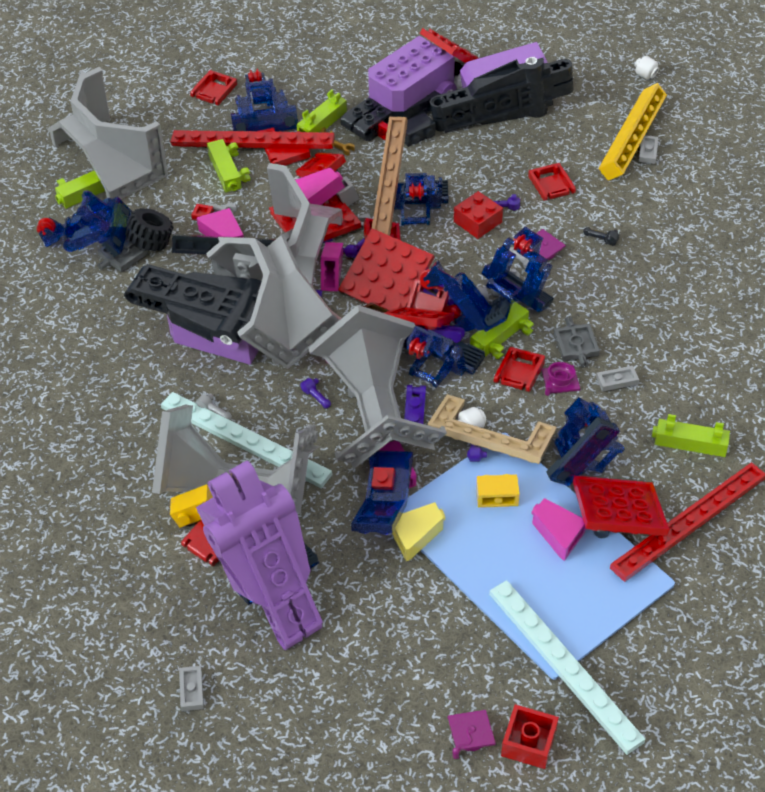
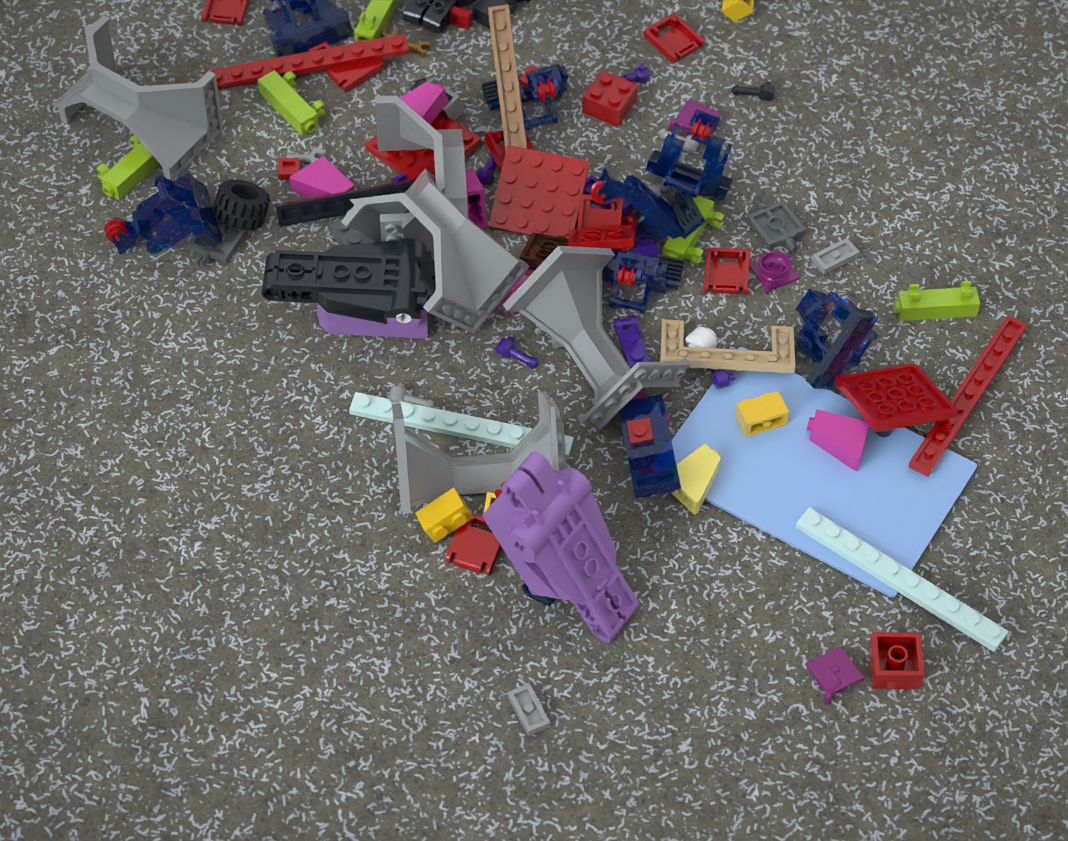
camera: 20 degrees left, 5 degrees up
(320, 162) = (403, 77): red container -> none

